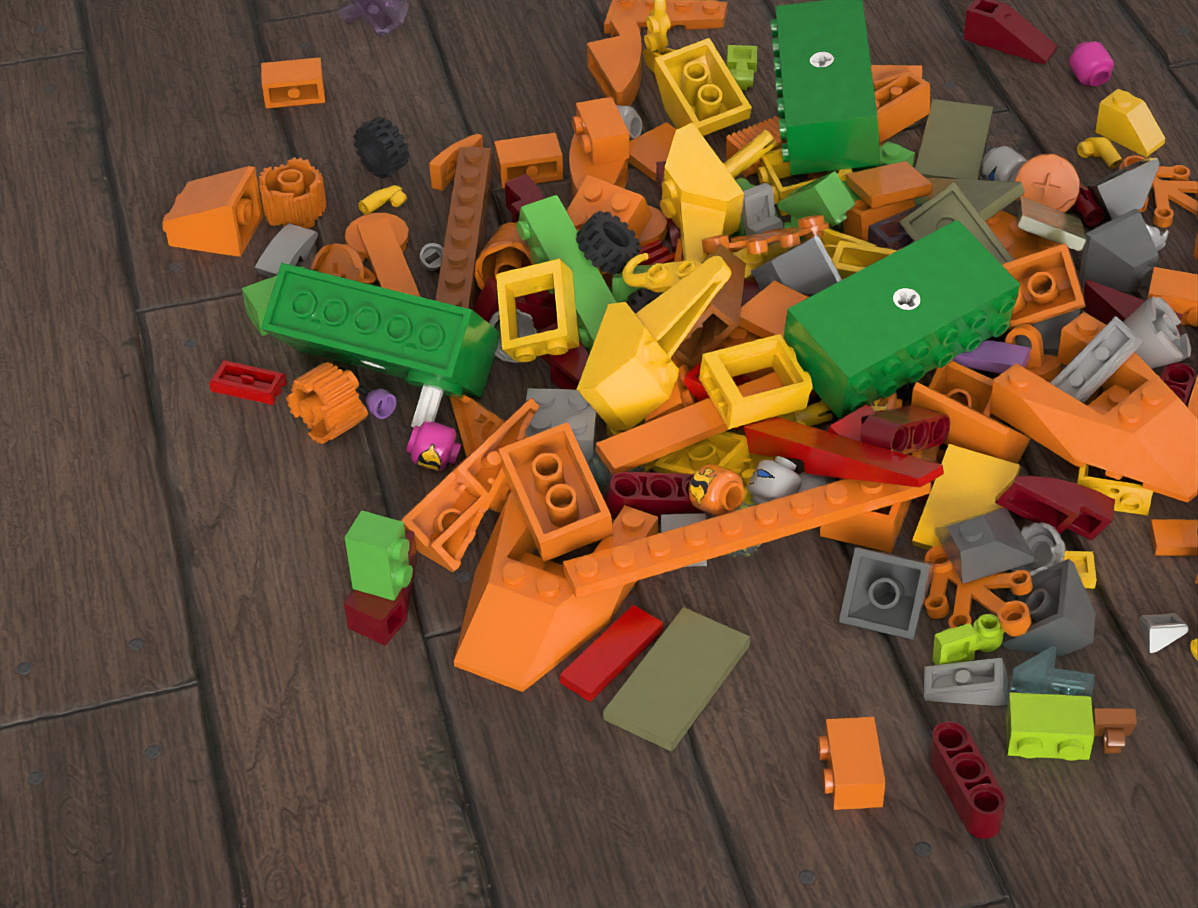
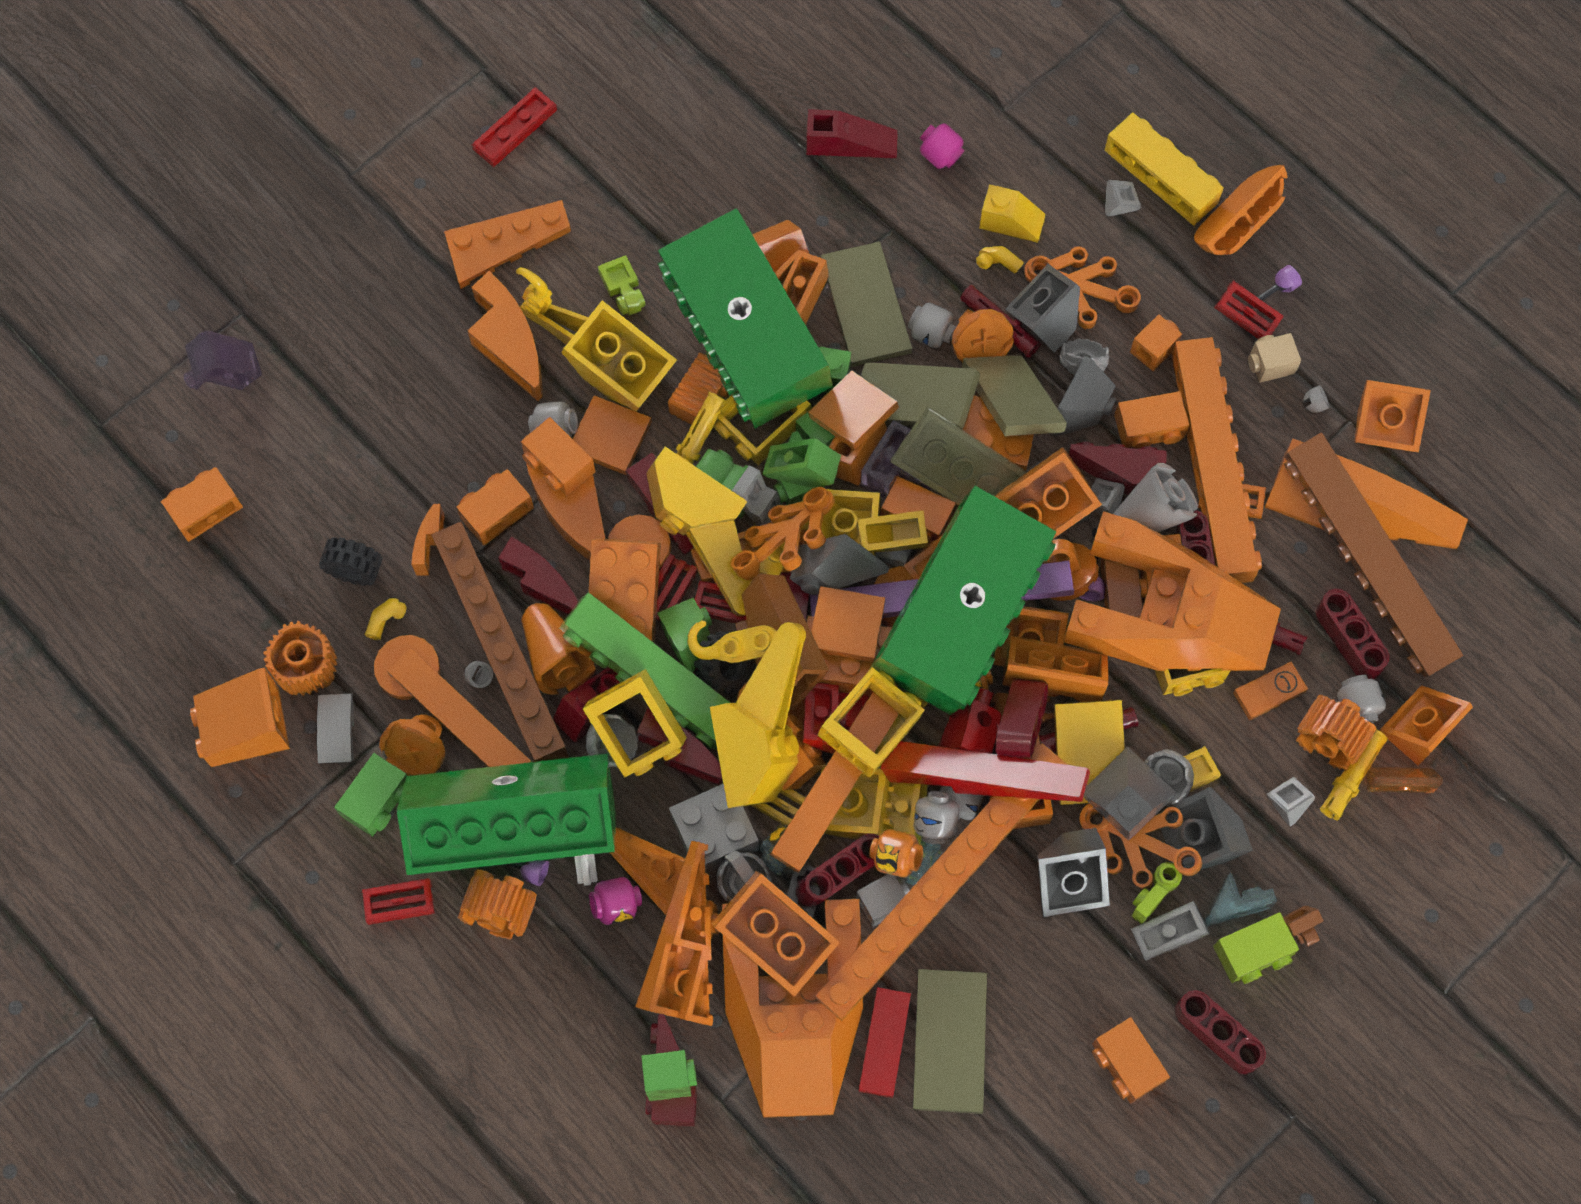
camera: 30 degrees left, 25 degrees up
(607, 242) = (649, 628): black tyre -> none
(1058, 504) = (1169, 722): dark red slope -> none
(1098, 360) = (1137, 569): light grey tile -> none

